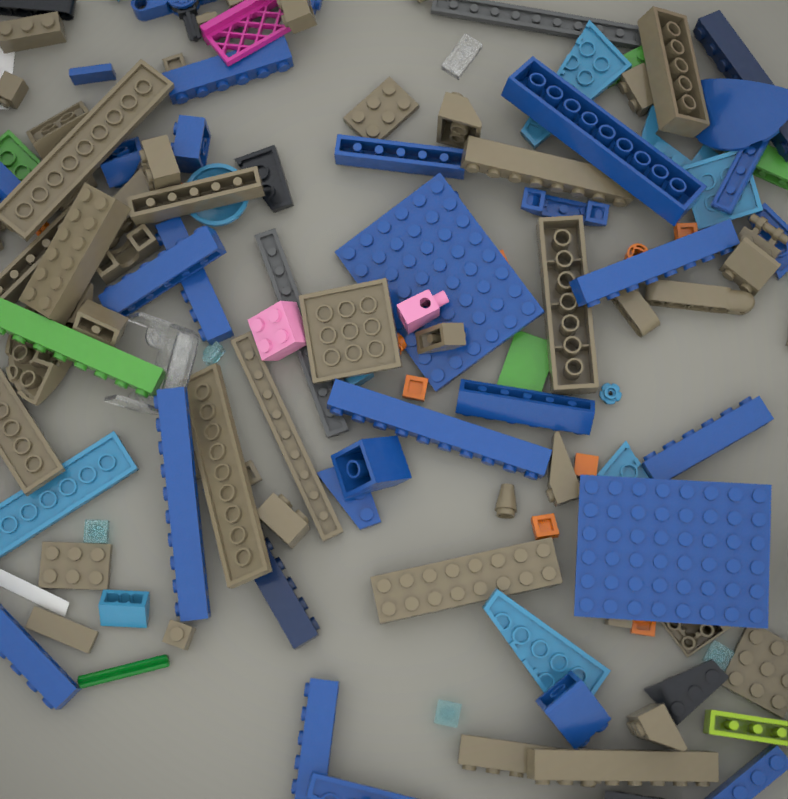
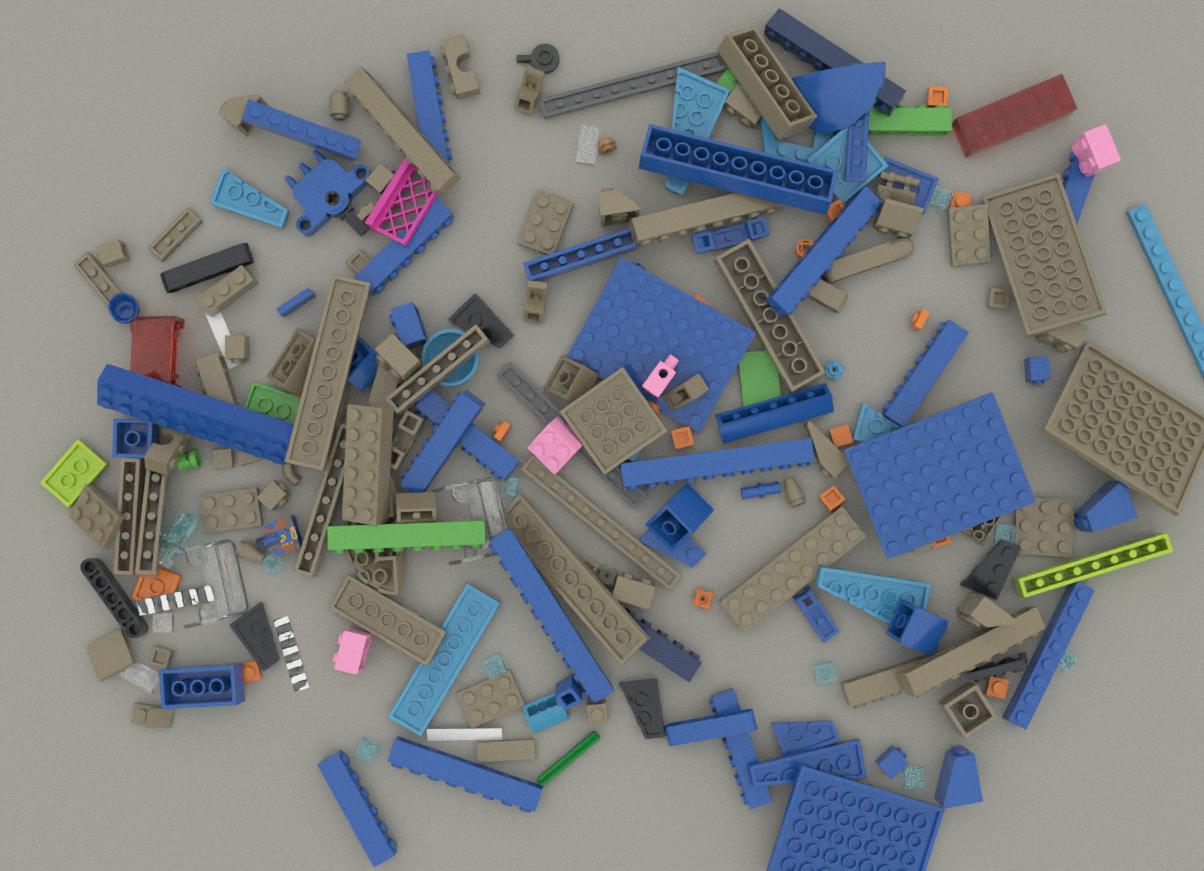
camera: 20 degrees left, 10 degrees up
(159, 597) = (568, 692): none -> blue brick
(231, 293) = (501, 430): none -> orange plate
(236, 653) = (646, 705): none -> black wing
(263, 488) = (611, 572): none -> olive plate
(292, 709) = (711, 727): none -> blue beam
(327, 272) = (570, 380): none -> dark tan slope
(332, 180) = (535, 301): none -> dark tan brick
(360, 568) = (706, 602): none -> orange plate
(392, 773) = (804, 736): none -> blue wing
(468, 645) = (816, 615): none -> blue plate
(472, 482) = (760, 490): none -> blue pin
(480, 65) = (606, 145): none -> medium nougat plate
(725, 382) = (919, 319): none -> orange plate

